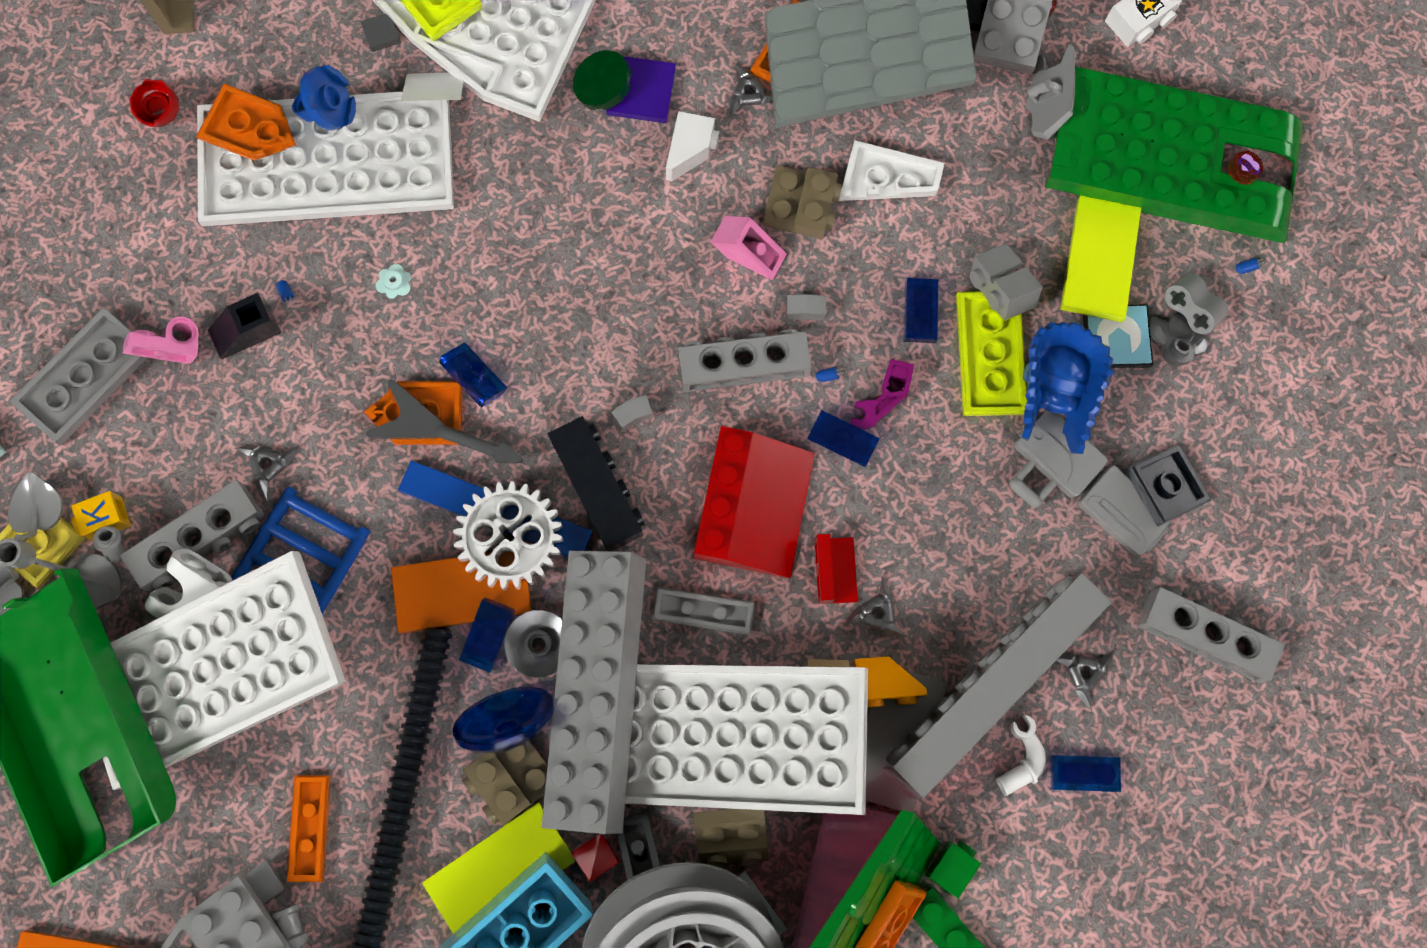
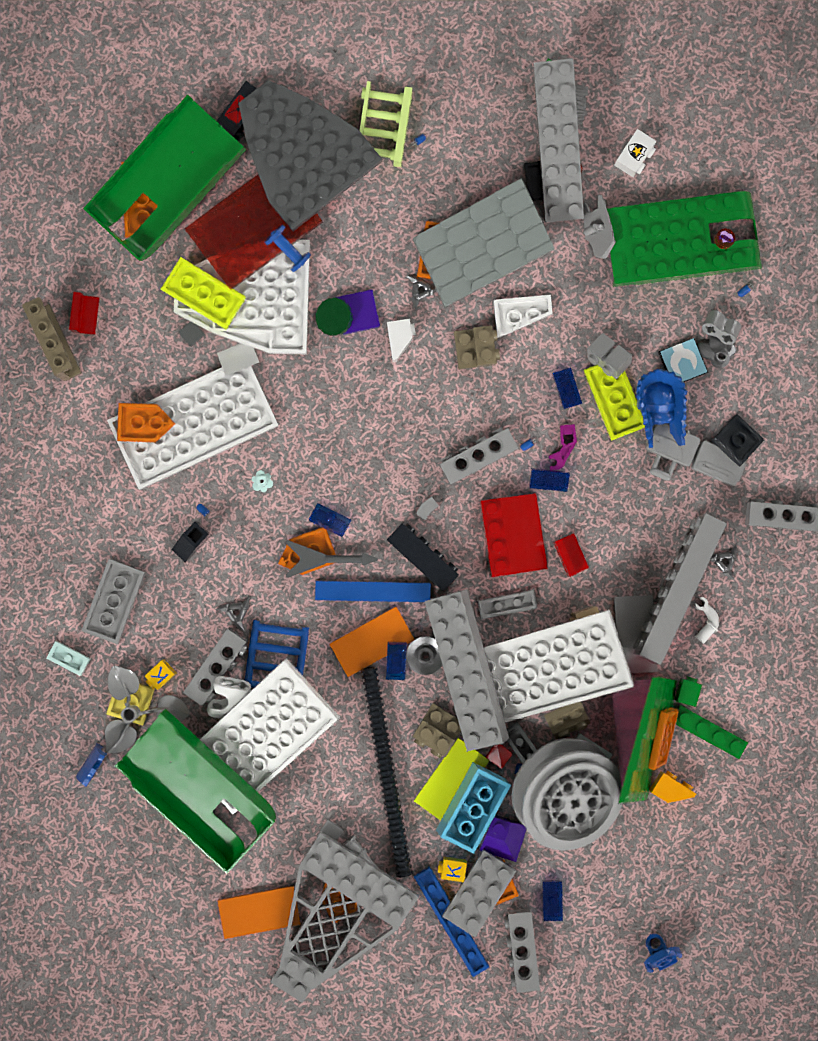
camera: 20 degrees left, 10 degrees up
(109, 542) = (169, 687): light grey pin -> none
(151, 98) = (78, 424): red hair -> none
(166, 347) = (154, 568): bright pink plate -> none
(308, 828) = (342, 795): orange tile -> none
(325, 99) = (183, 392): blue tile -> none
(488, 513) = (403, 612): white gear -> none
(504, 720) = (425, 703): clear blue dish -> none
(748, 245) = (456, 387): bright pink slope -> none
(806, 307) = (501, 410): light grey piece -> none
(865, 615) = (595, 570): flat silver piece -> none
(889, 681) = (620, 607): light orange slope -> none
(1085, 773) = (742, 615): clear blue plate -> none
(1101, 259) = (659, 319): neon yellow tile -> none

